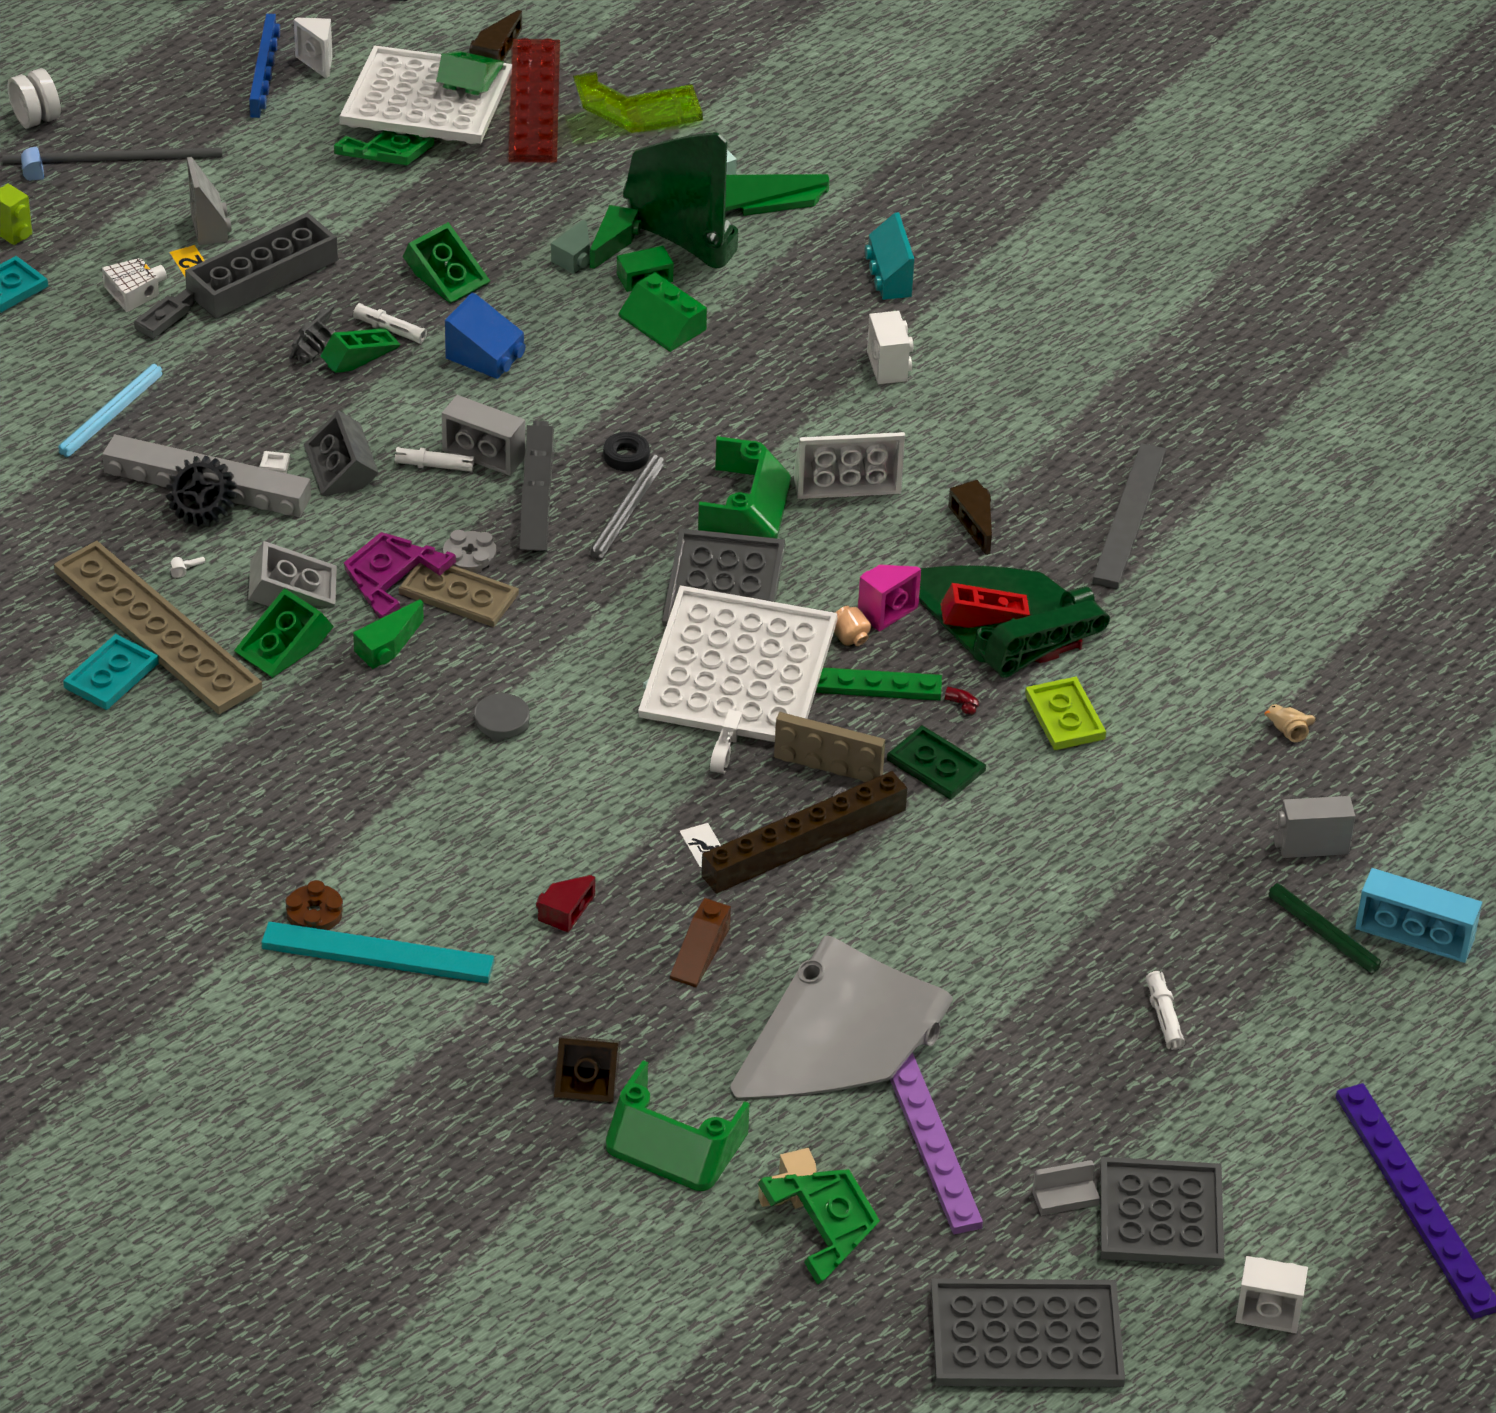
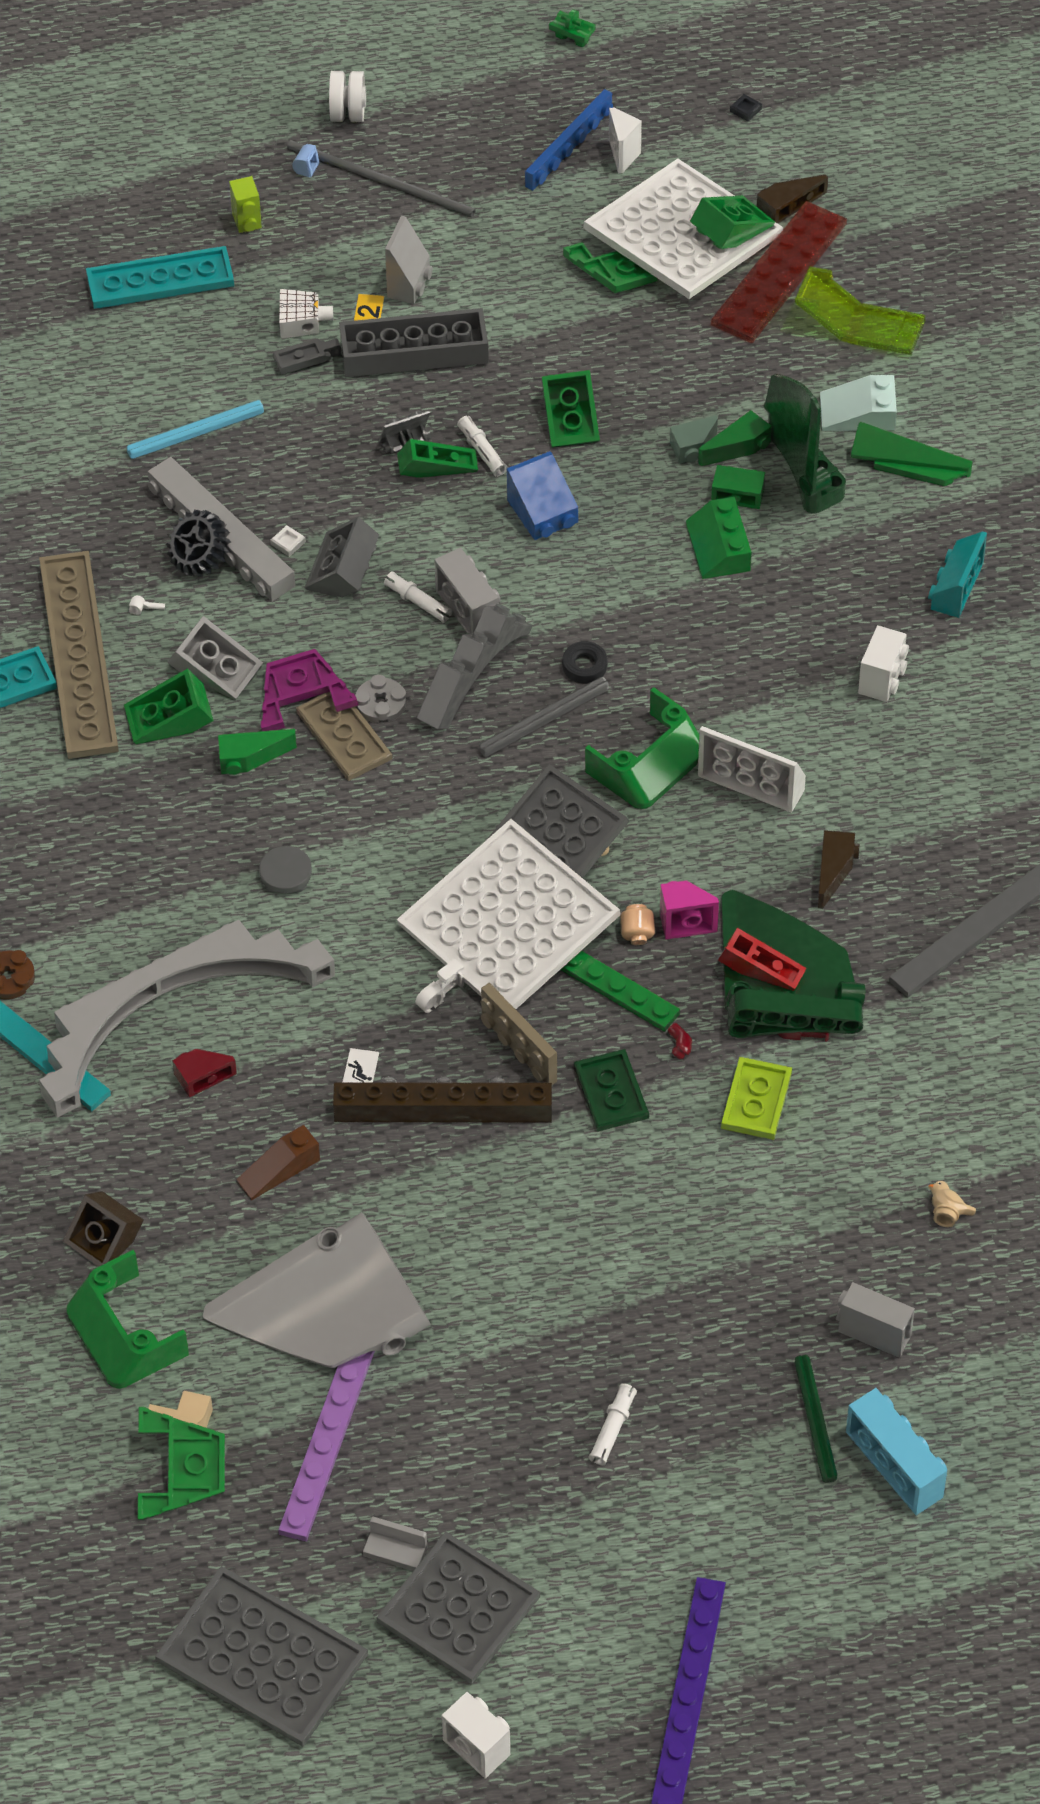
camera: 35 degrees right, 10 degrees up
(502, 804) = (219, 954): none -> light grey arch

